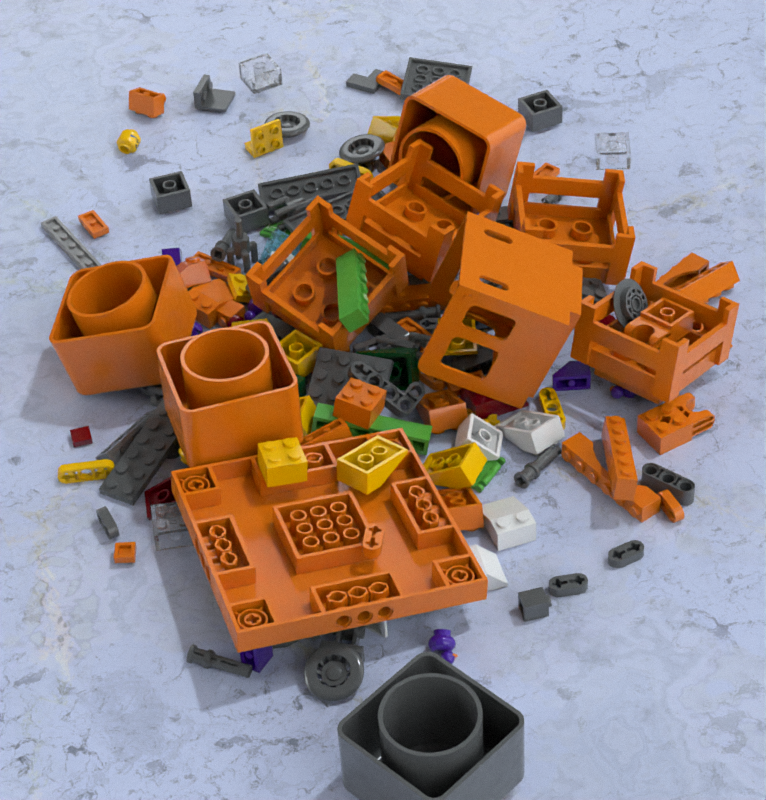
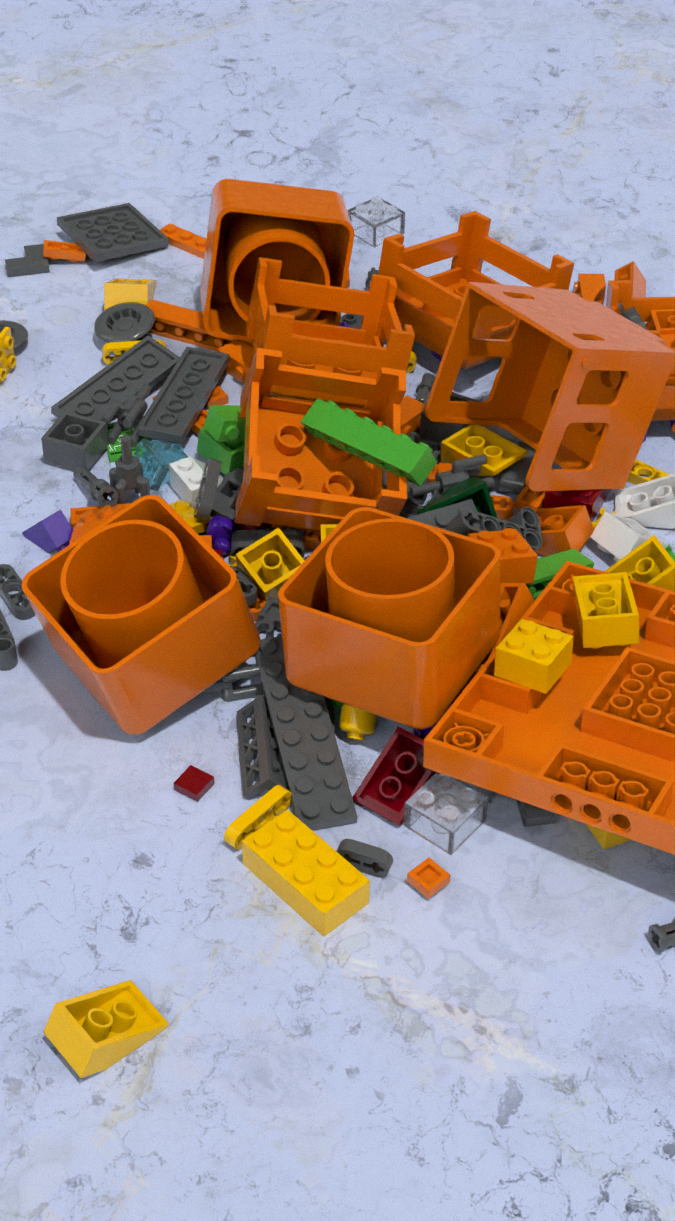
camera: 45 degrees left, 0 degrees up
(70, 511) = (306, 872): none -> yellow brick

